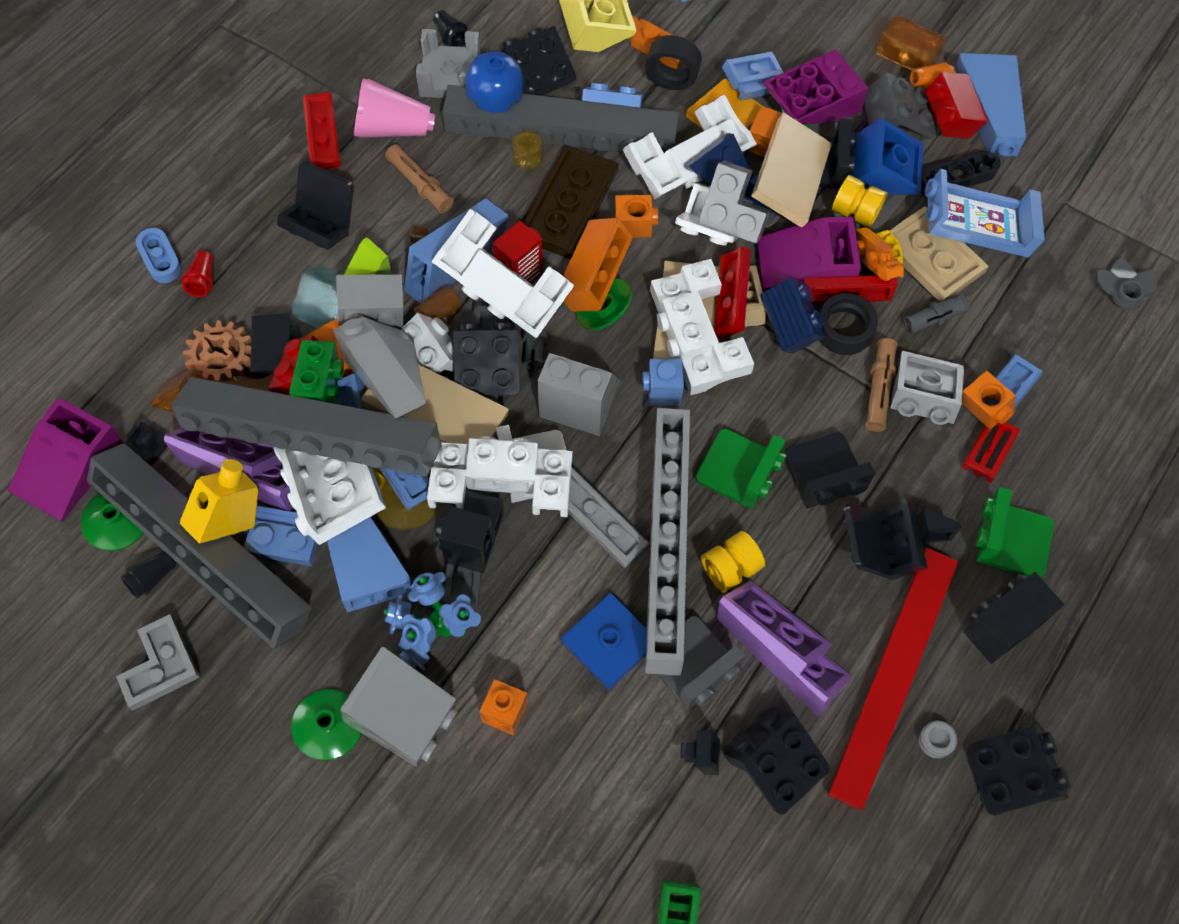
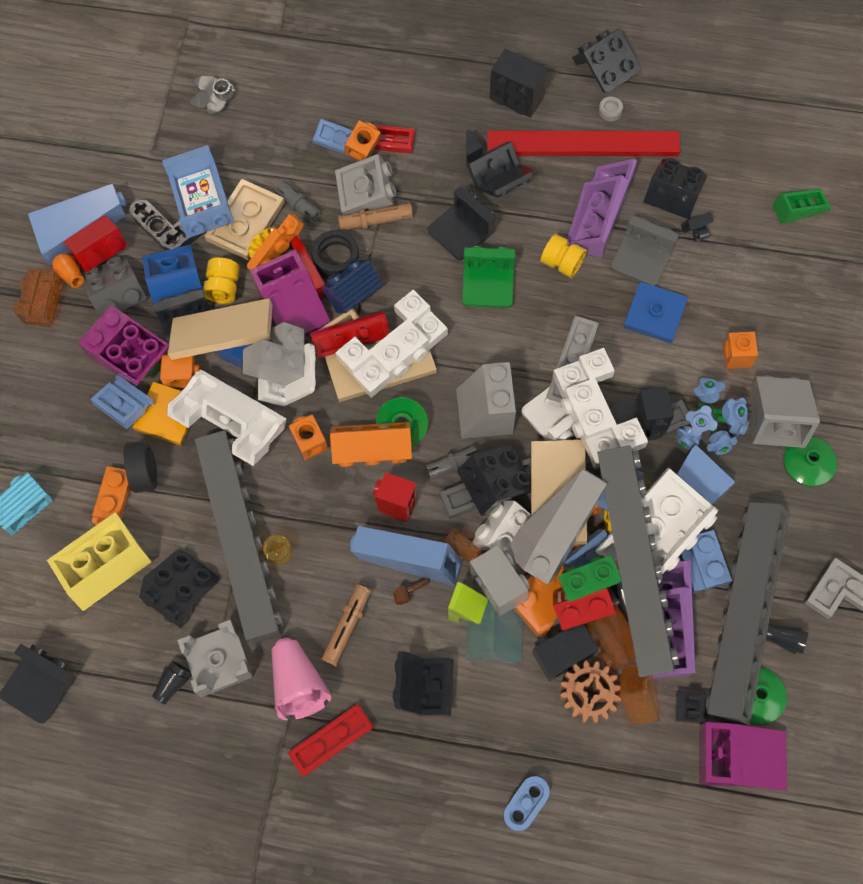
camera: 110 degrees left, 5 degrees up
(199, 275) = (527, 755): red cone -> none
(221, 504) = (716, 593): yellow torso -> none
(494, 81) = (233, 594): blue cylinder -> none
(495, 282) = (437, 489): white bracket -> none
(570, 199) = (311, 497): dark brown tile -> none
(624, 96) = (194, 502): medium blue plate -> none
(664, 381) = (448, 352): medium blue brick -> none
(668, 544) = (572, 295): light grey brick -> none
(723, 149) = (236, 384): dark blue wing -> none
(1013, 537) = (454, 105): green bracket -> none

